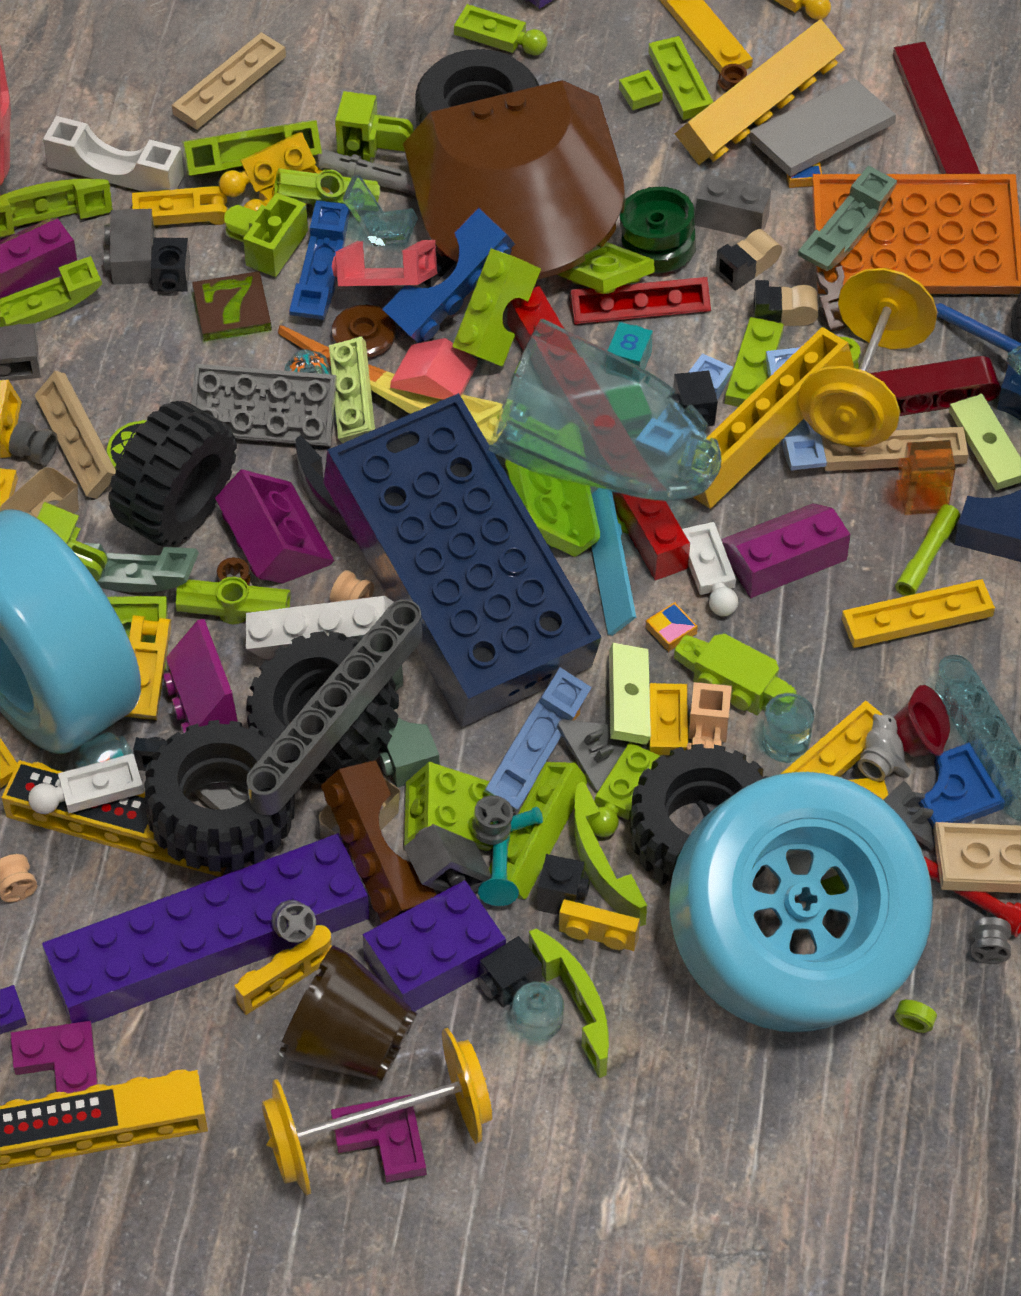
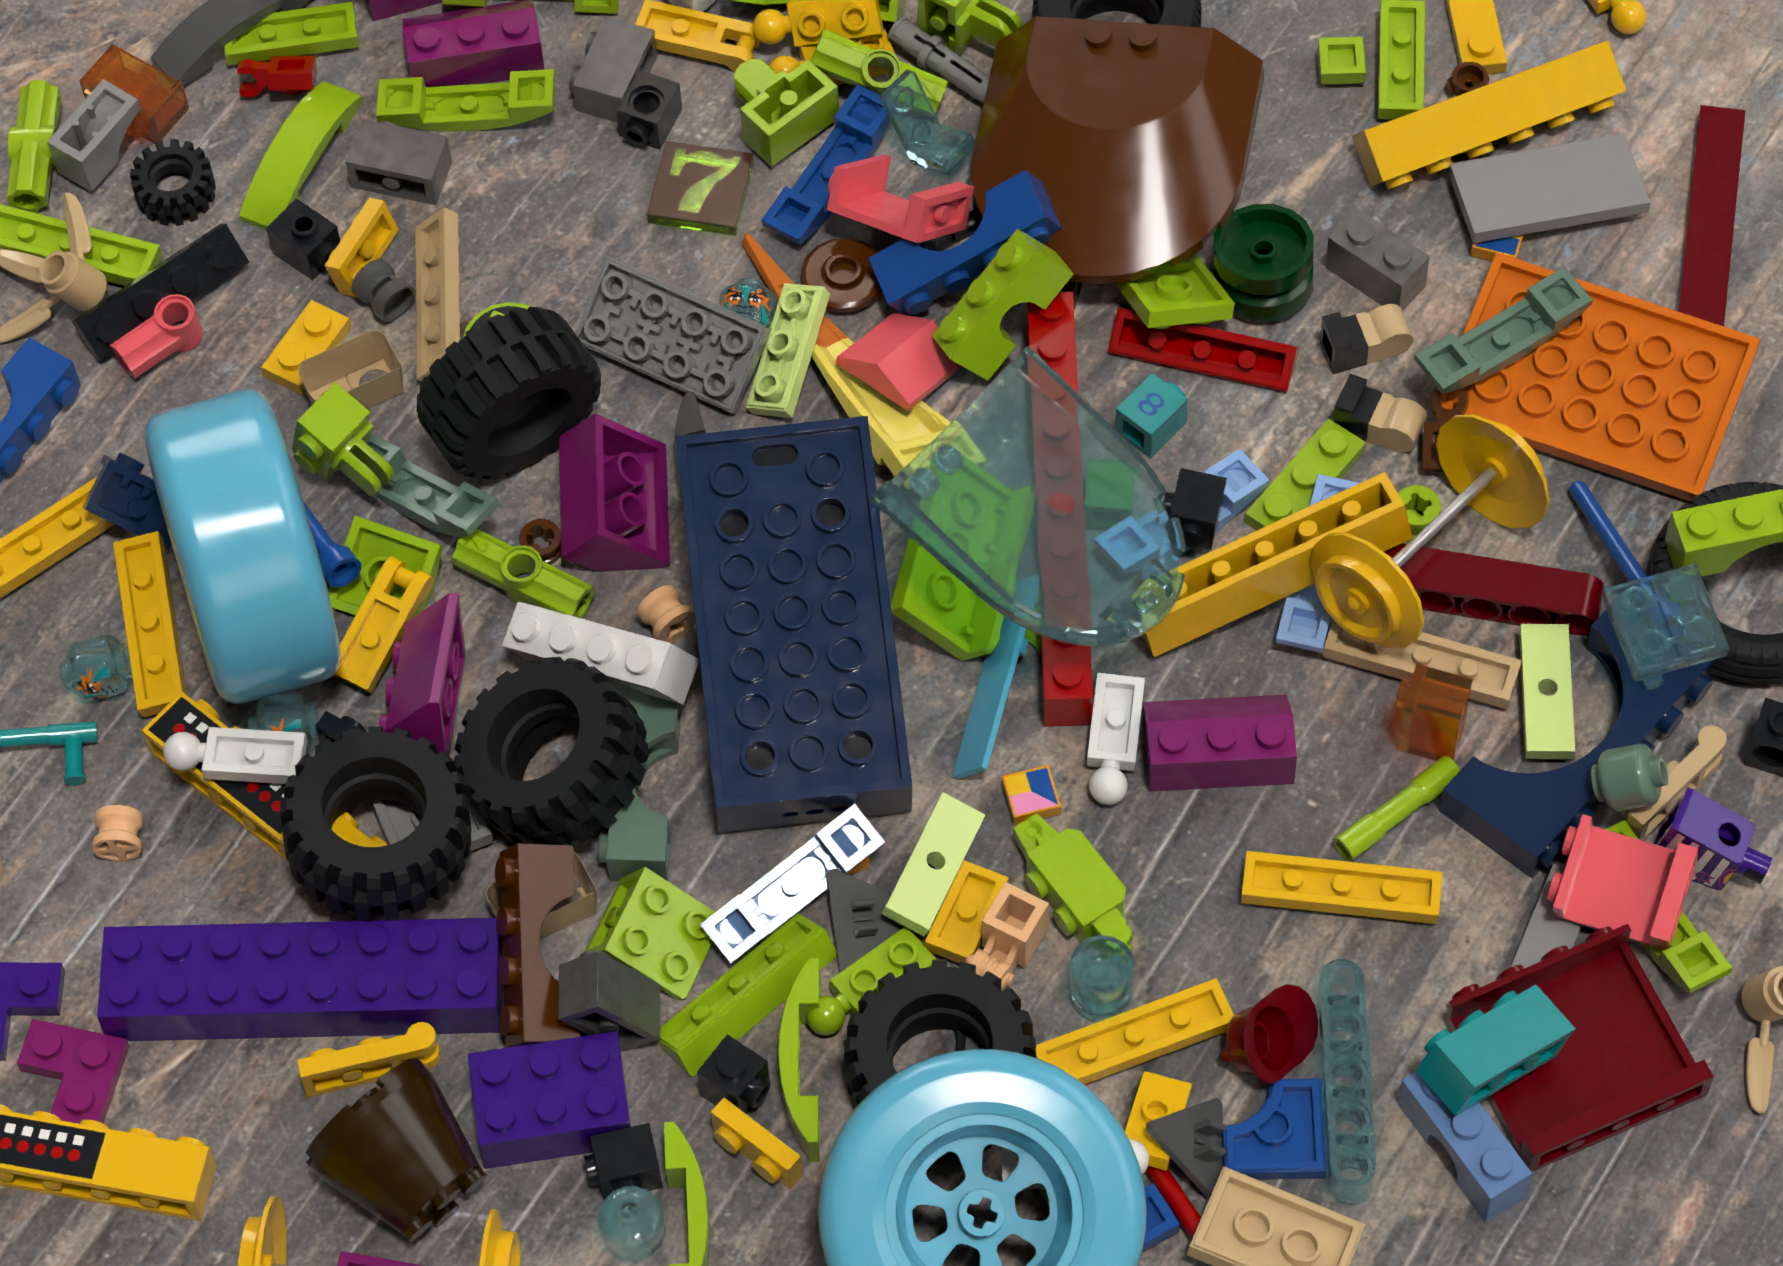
camera: 25 degrees right, 5 degrees up
(299, 925) = (382, 1016): flat silver wheel -> none
(334, 721) = (530, 787): dark grey beam -> none
(489, 810) = (690, 956): dark grey wheel -> none
(499, 890) = (657, 1054): teal piece -> none
(883, 750) = (1202, 1051): light grey animal -> none

